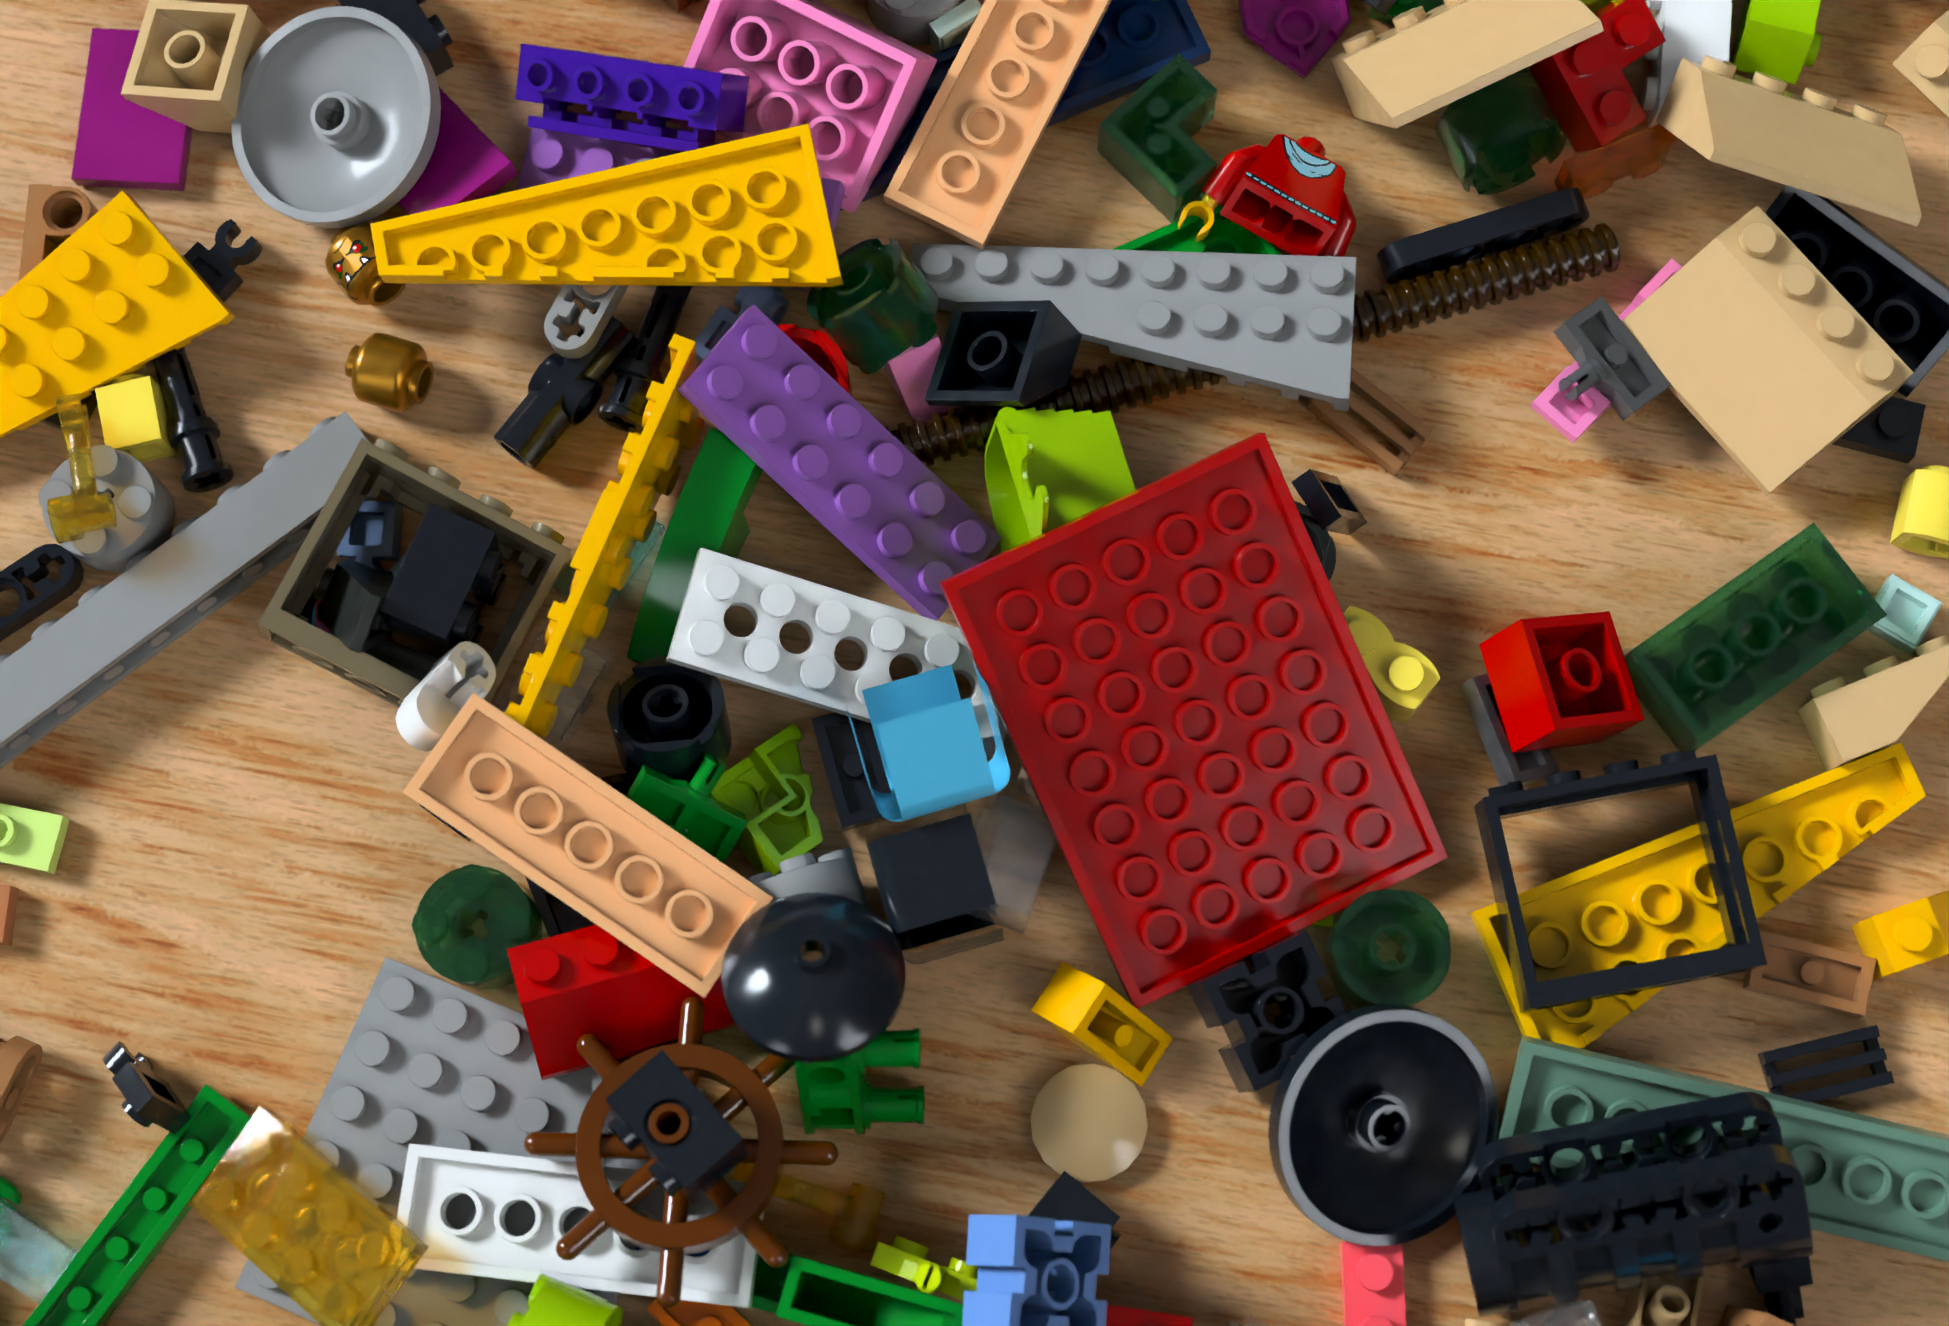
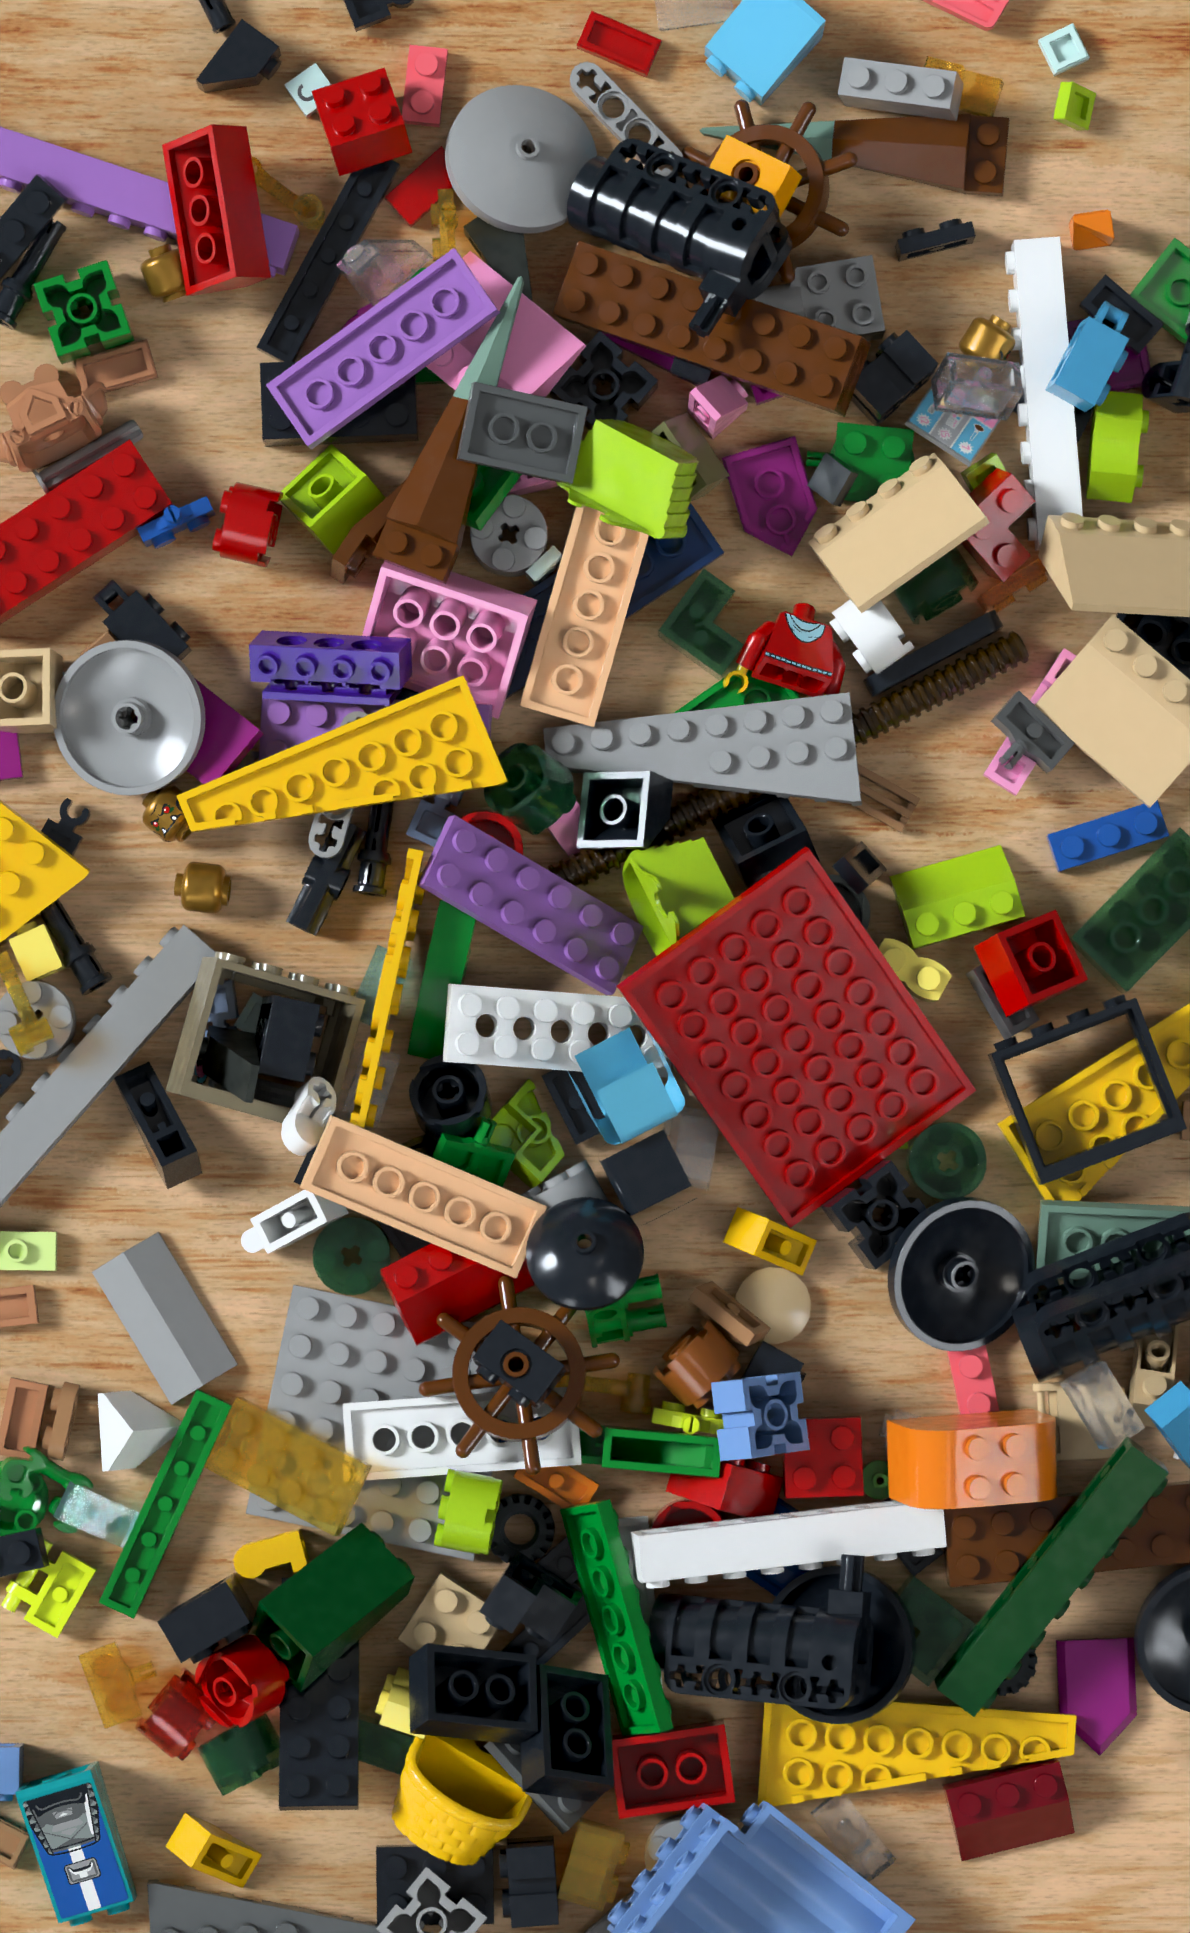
camera: 20 degrees left, 10 degrees up
(89, 1131) = (131, 1429): none -> white slope
(146, 1095) = (163, 1405): black plate -> none
(191, 971) = (164, 1318): none -> light grey slope
(246, 693) = (159, 1125): none -> black slope
(399, 857) = (290, 1222): none -> white brick
(956, 1182) = (696, 1362): none -> dark orange brick
(1008, 1107) = (719, 1306): none -> medium nougat plate
(1190, 428) = (762, 836): none -> black slope
(1401, 182) = (873, 633): none -> white brick
(1464, 578) = (957, 897): none -> lime slope
(1695, 531) = (1107, 836): none -> blue plate

